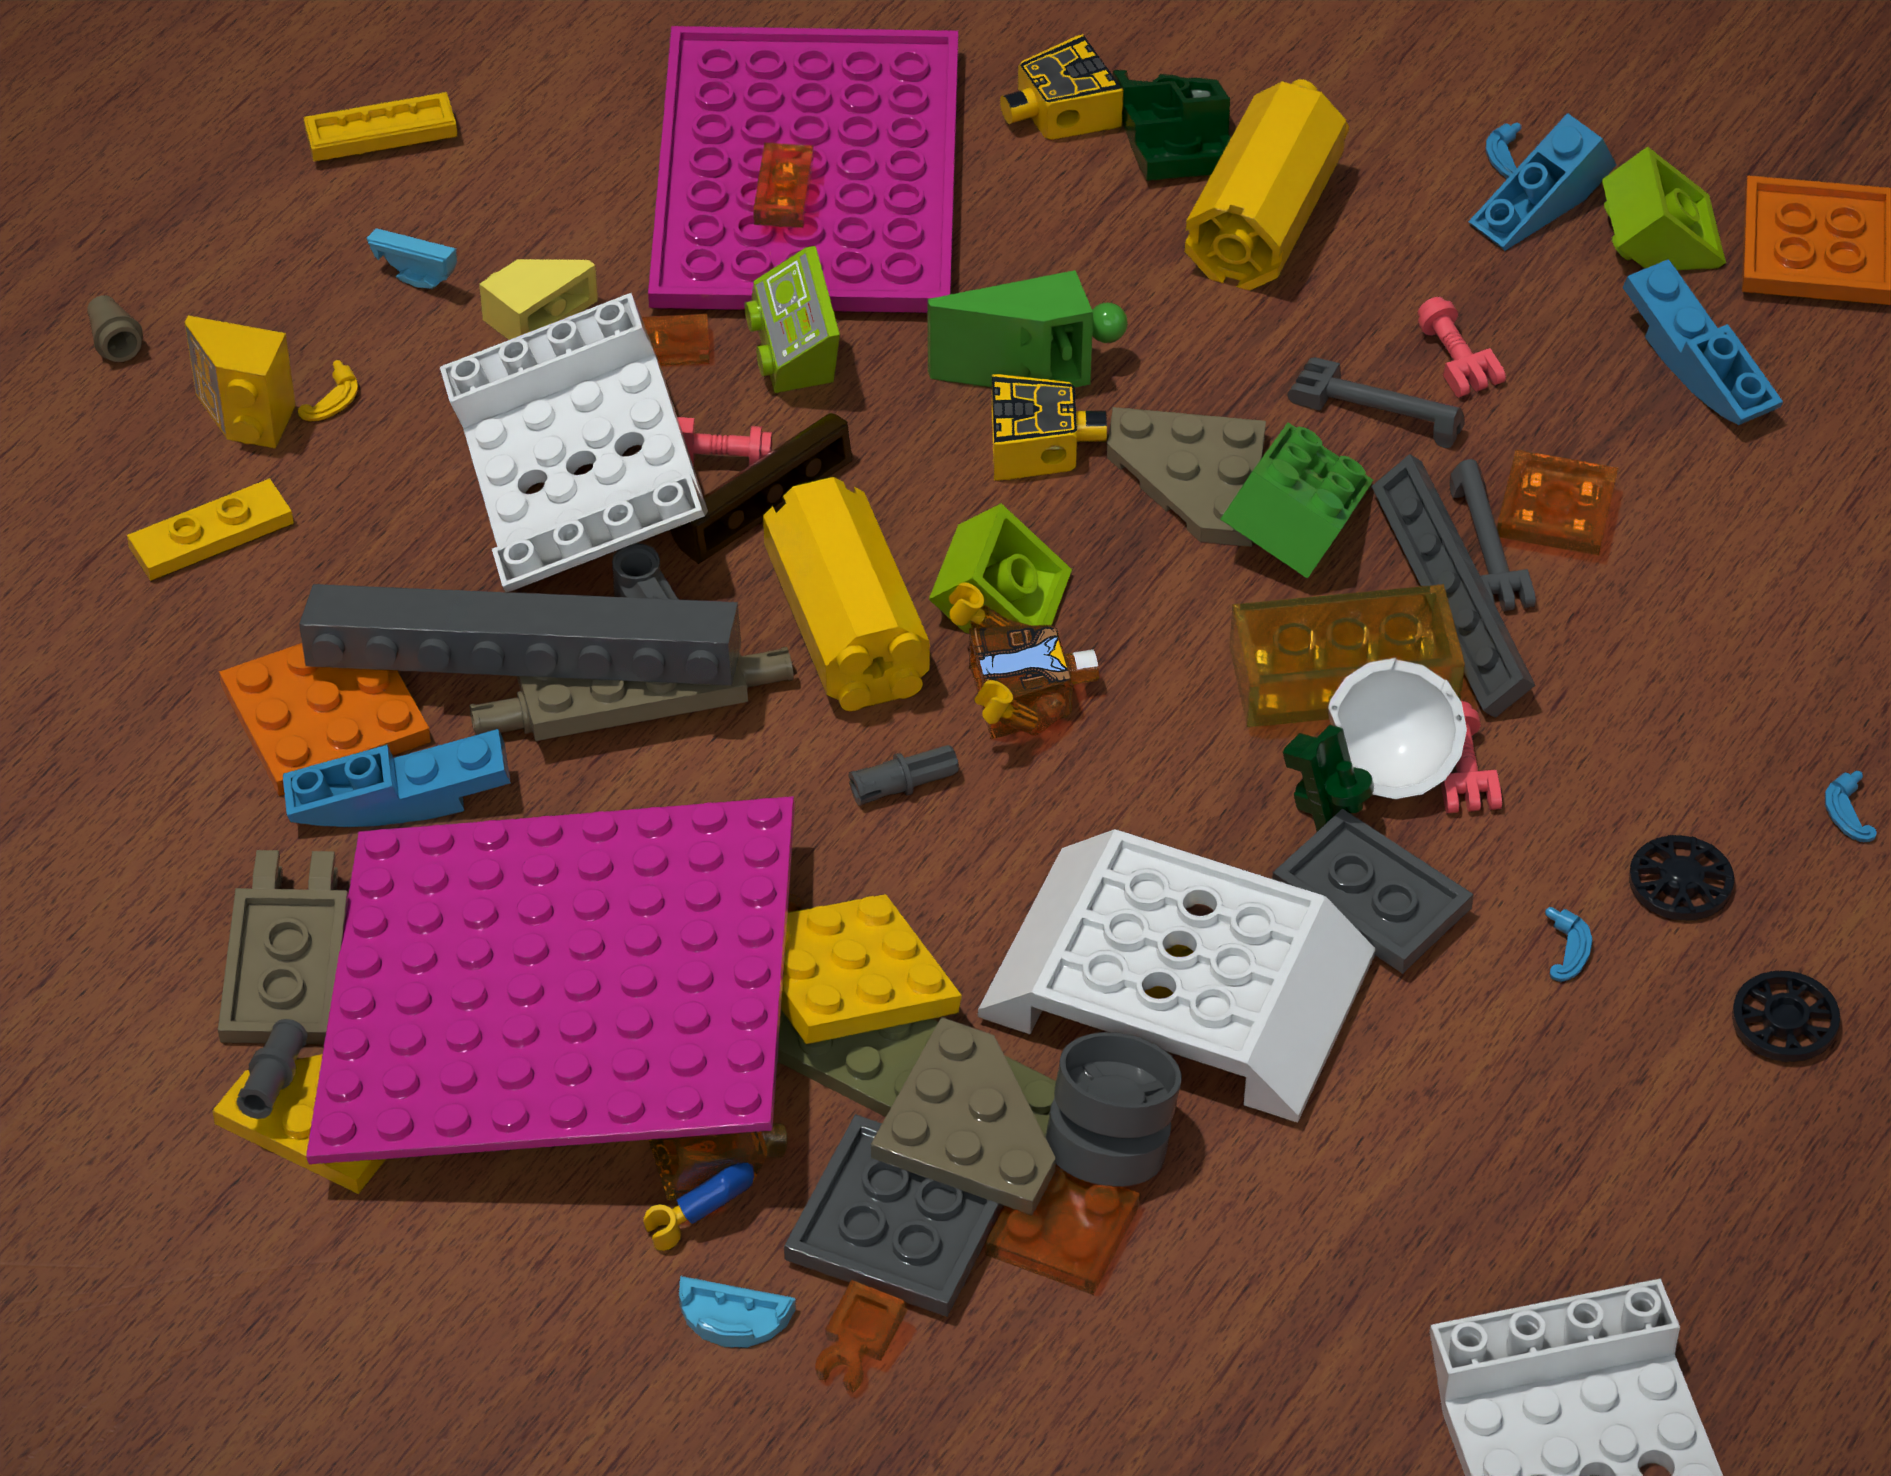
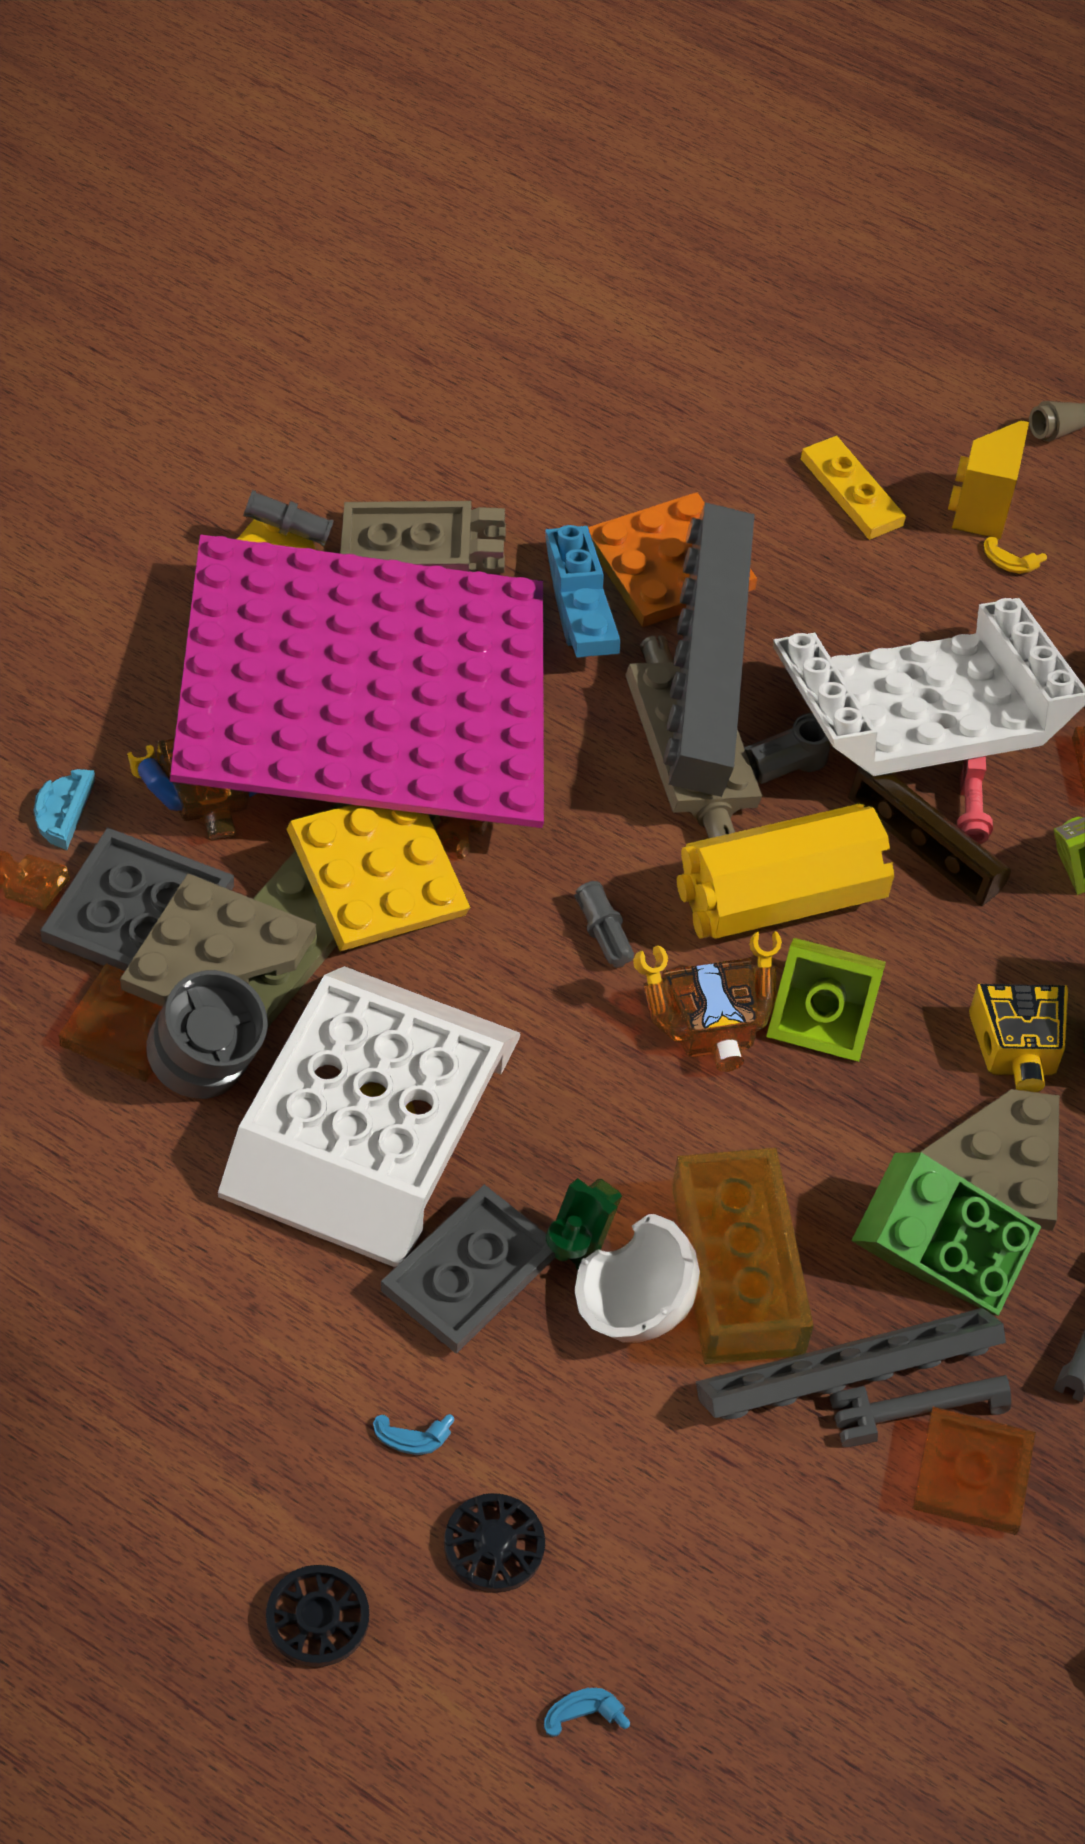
camera: 85 degrees right, 5 degrees up
(1468, 778) = (600, 1360): coral hinge -> none

